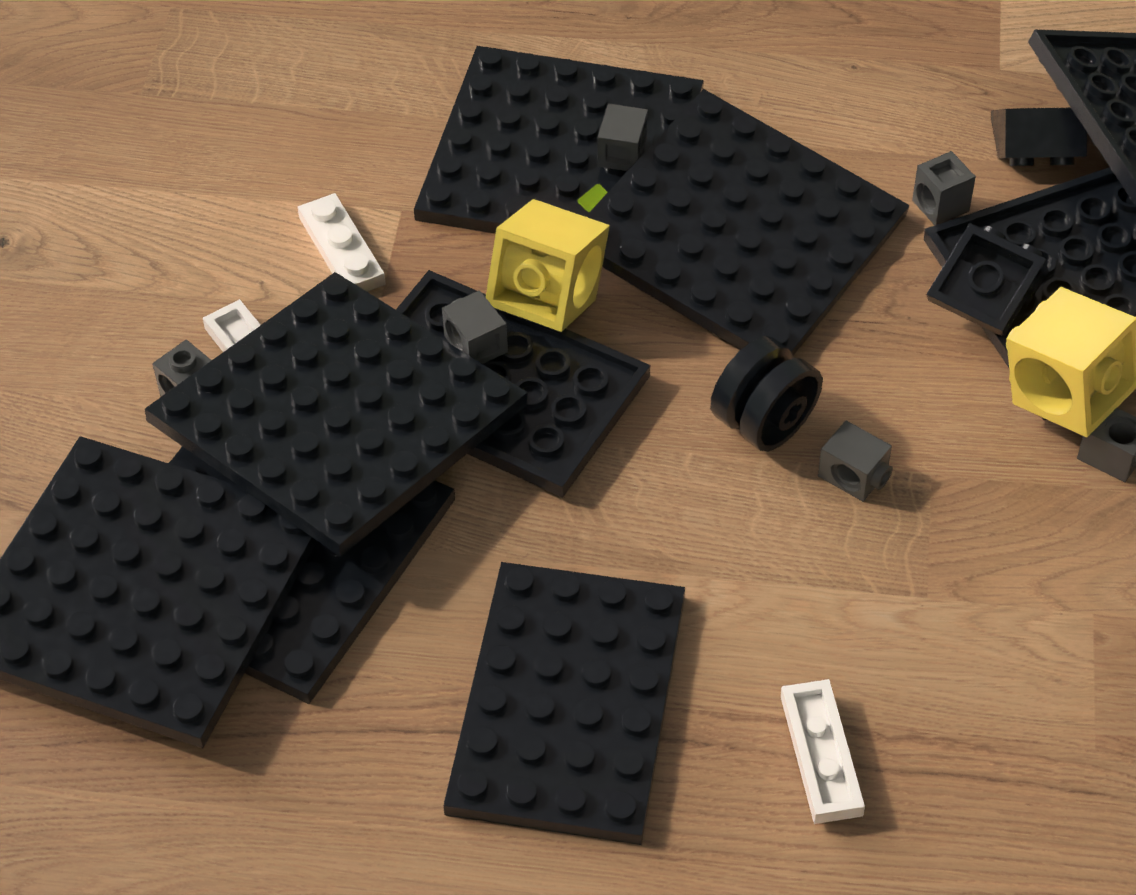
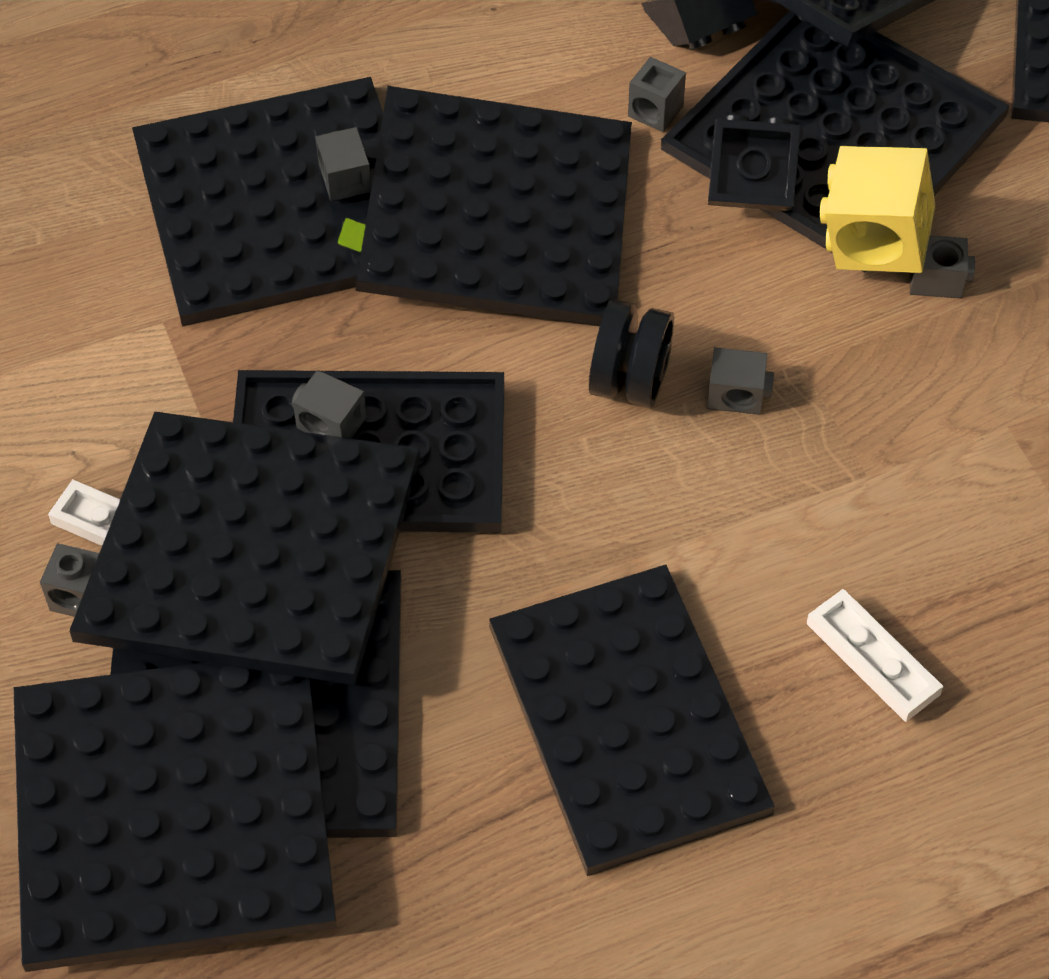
camera: 30 degrees left, 5 degrees up
(341, 242) = (127, 379): white plate -> none
(546, 264) = (358, 317): light yellow brick -> none

